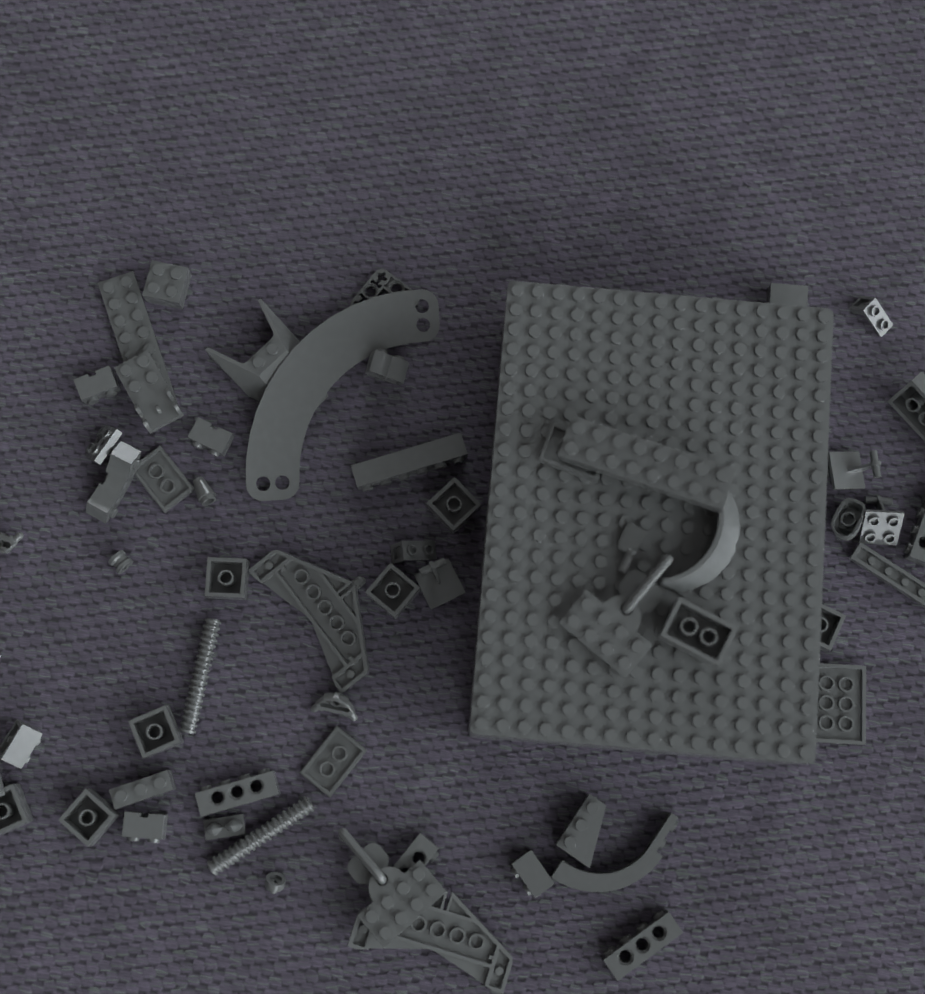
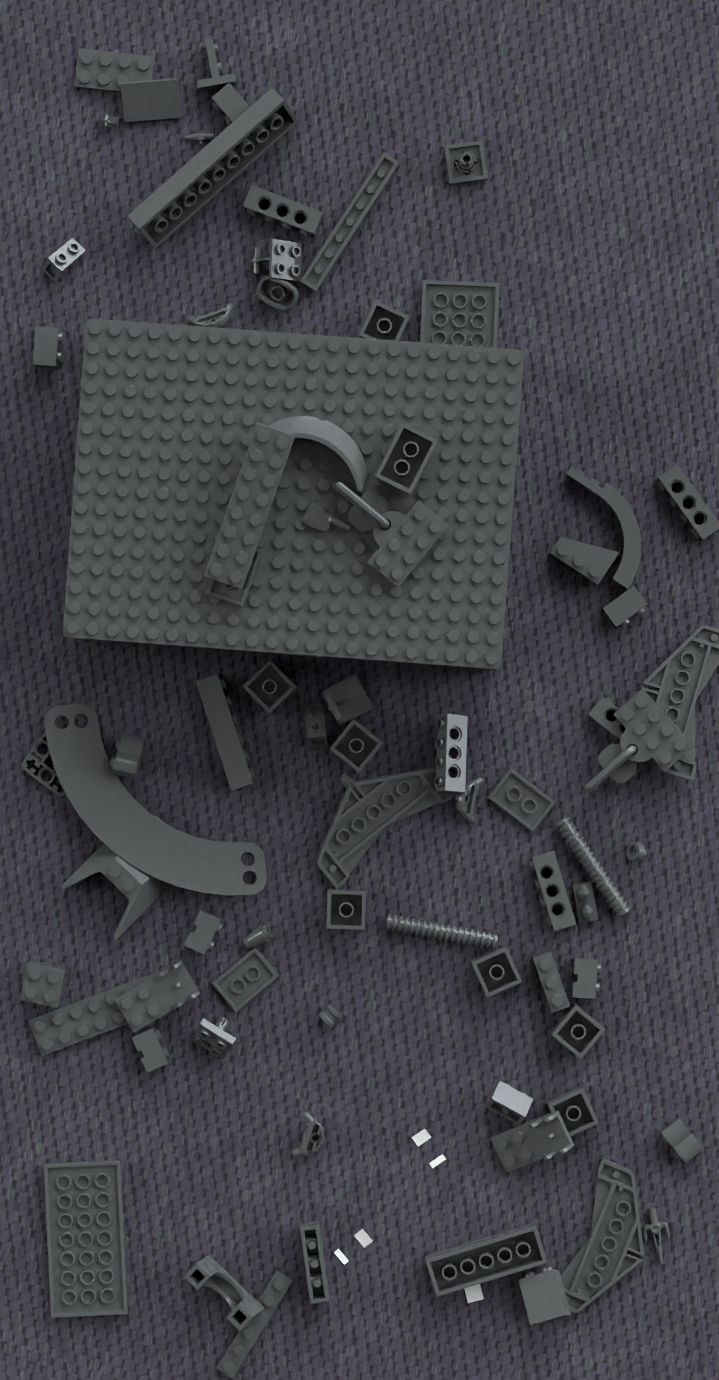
camera: 90 degrees left, 10 degrees up
(120, 471) = (248, 1023): dark grey brick -> none
(390, 694) = (458, 747): none -> dark grey brick
(847, 469) = (226, 291): dark grey plate -> none

